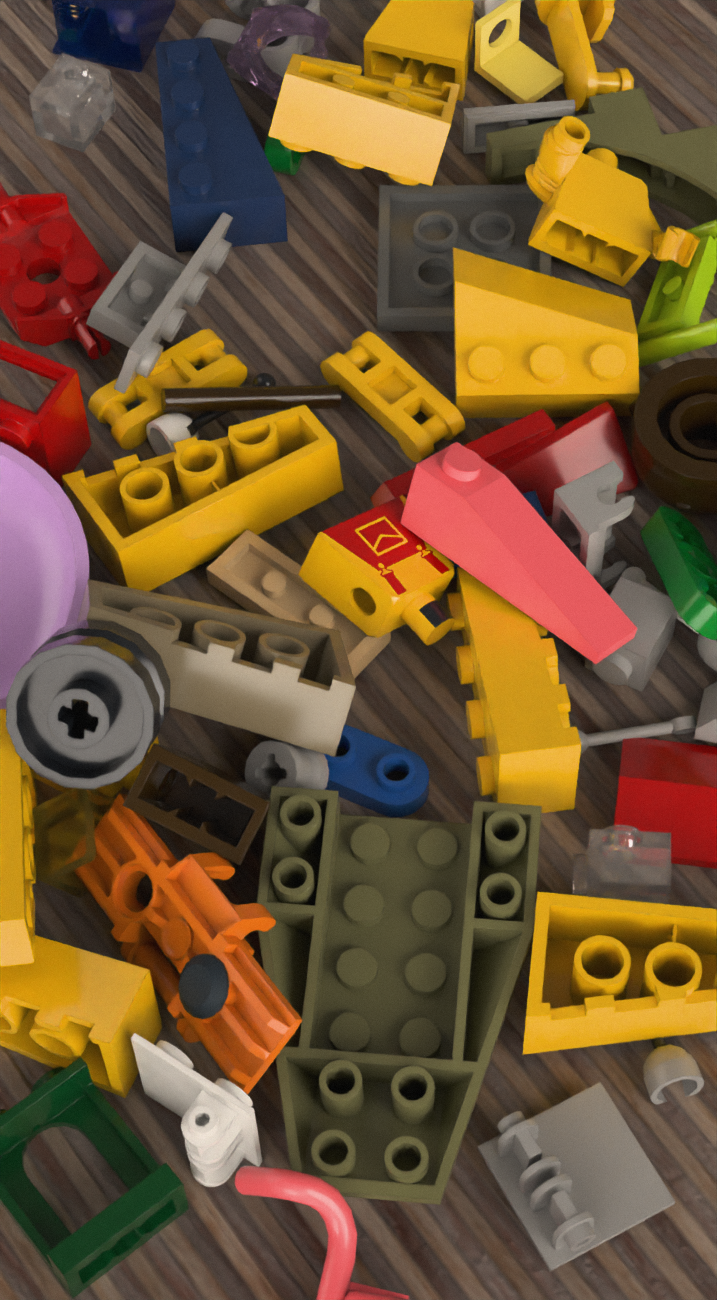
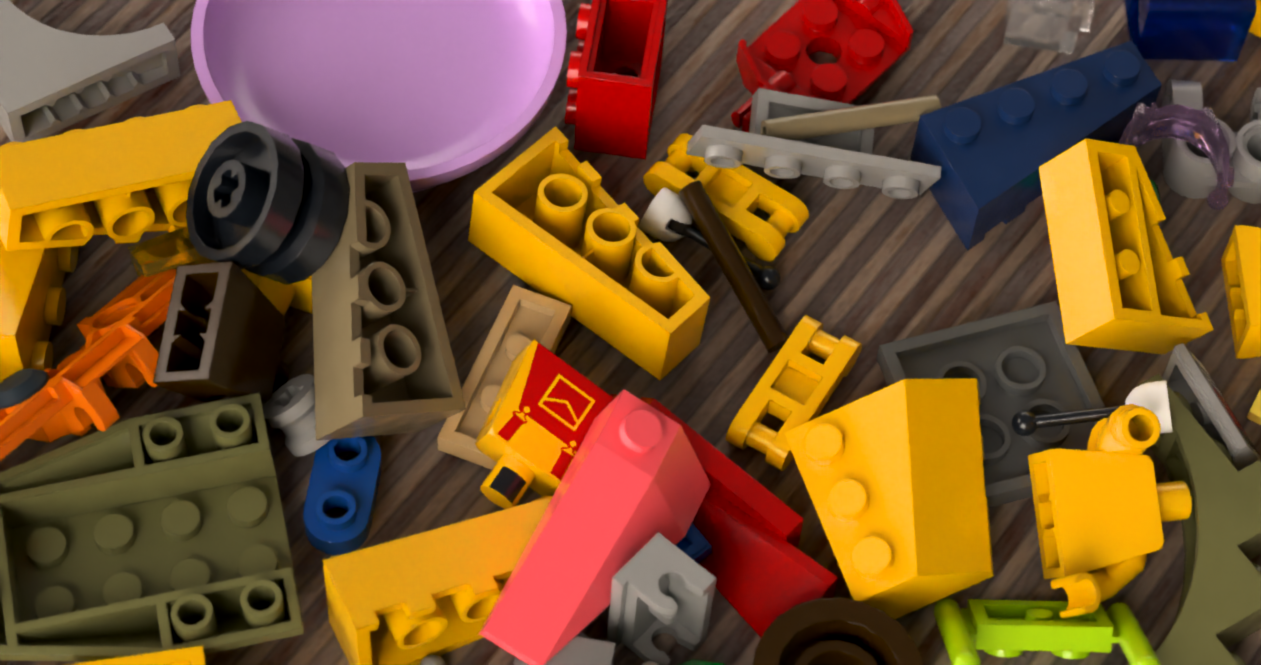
camera: 65 degrees right, 0 degrees up
(148, 258) = (850, 118): none -> dark tan piece
(522, 146) = (1148, 395): none -> hinge

